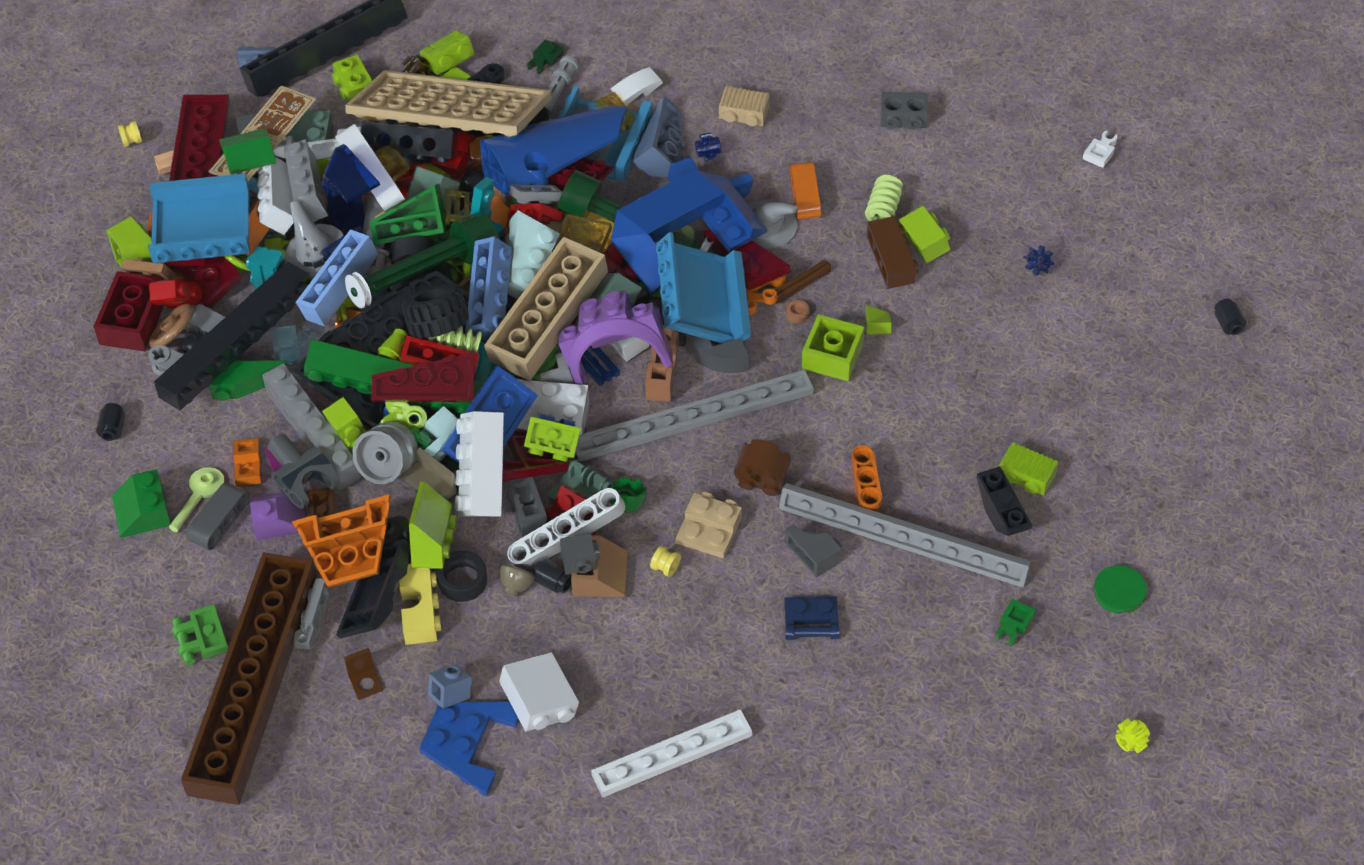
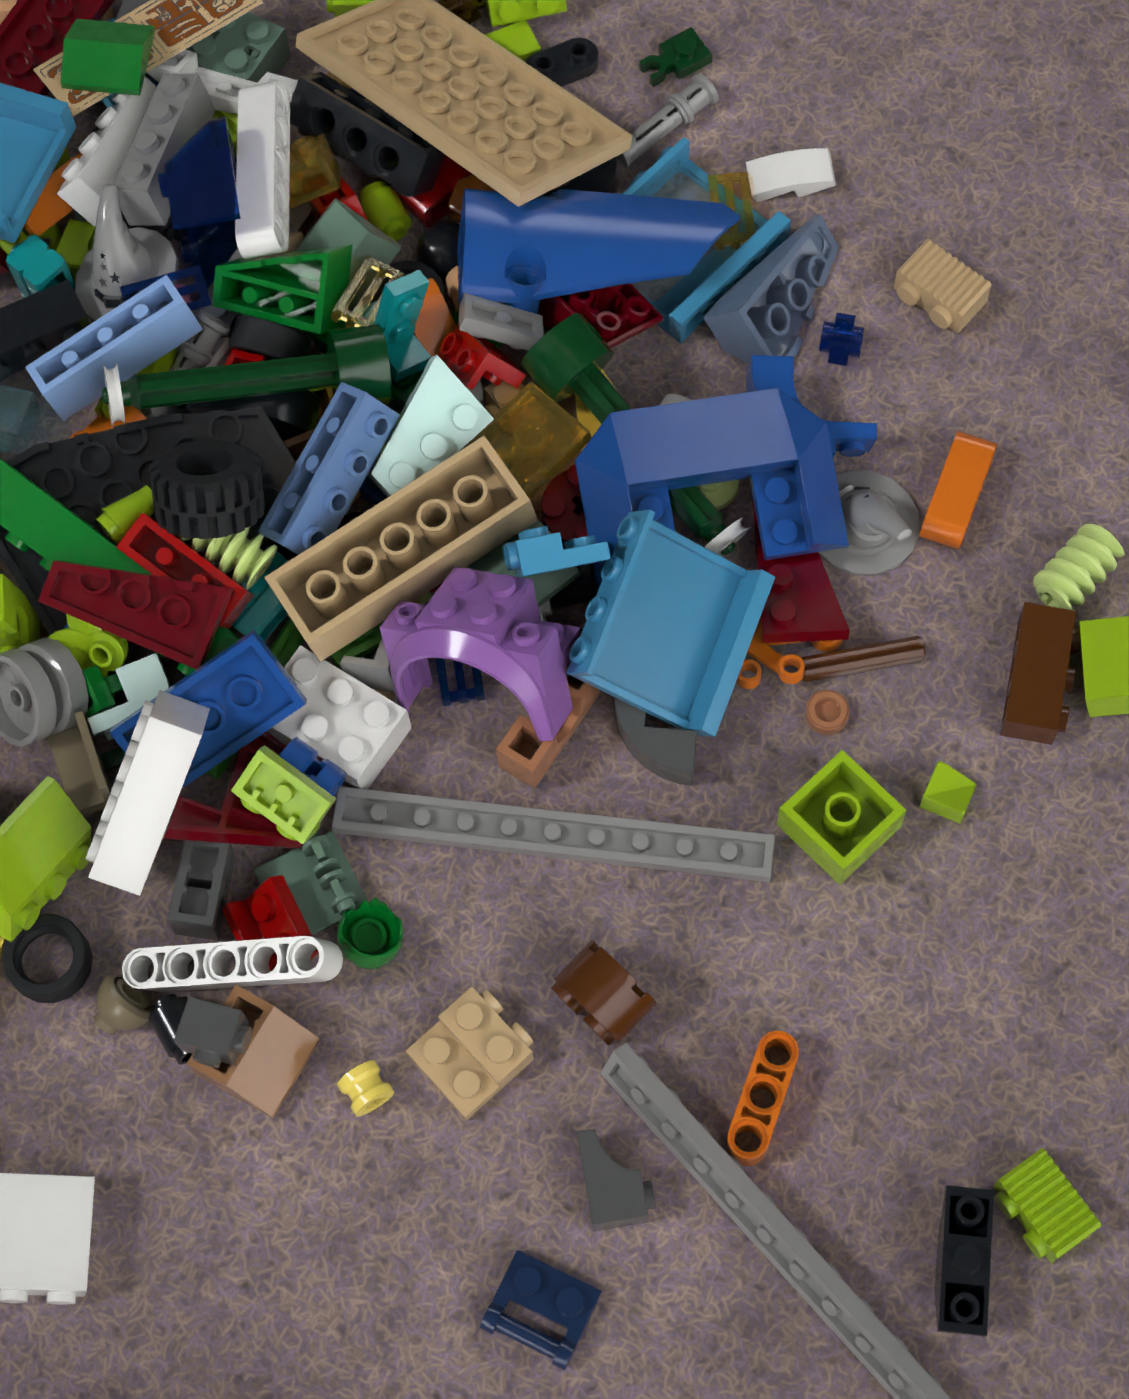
camera: 30 degrees right, 15 degrees up
(629, 274) = (543, 552): none -> dark azure plate

